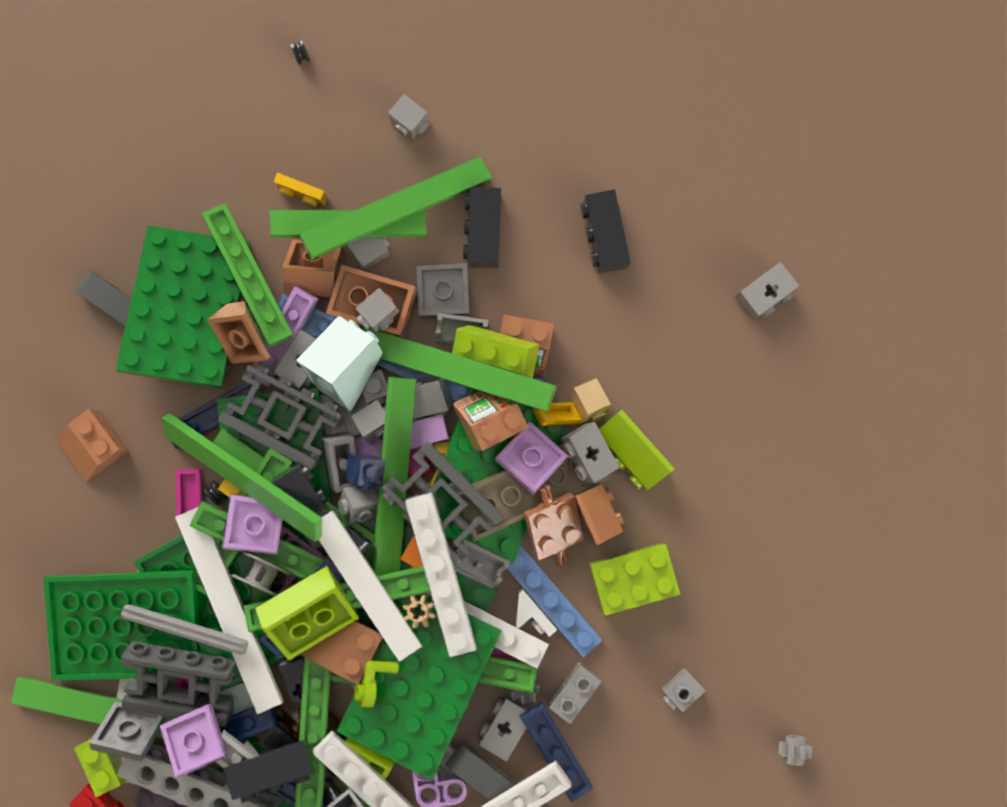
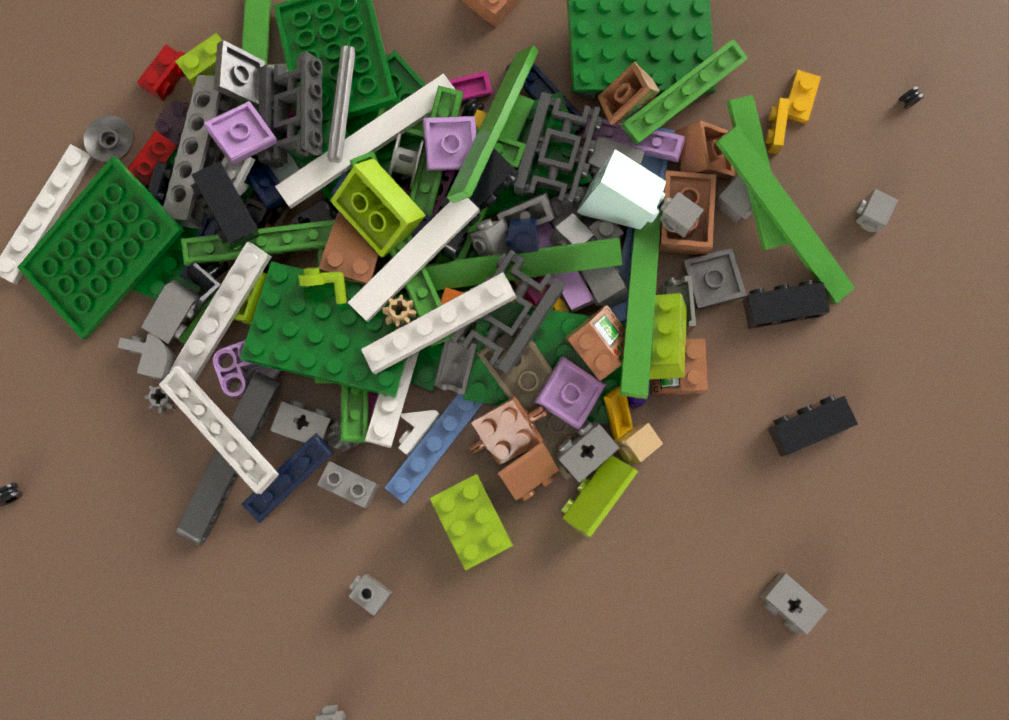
camera: 80 degrees right, 5 degrees down
(273, 157) = (802, 96): none -> yellow plate

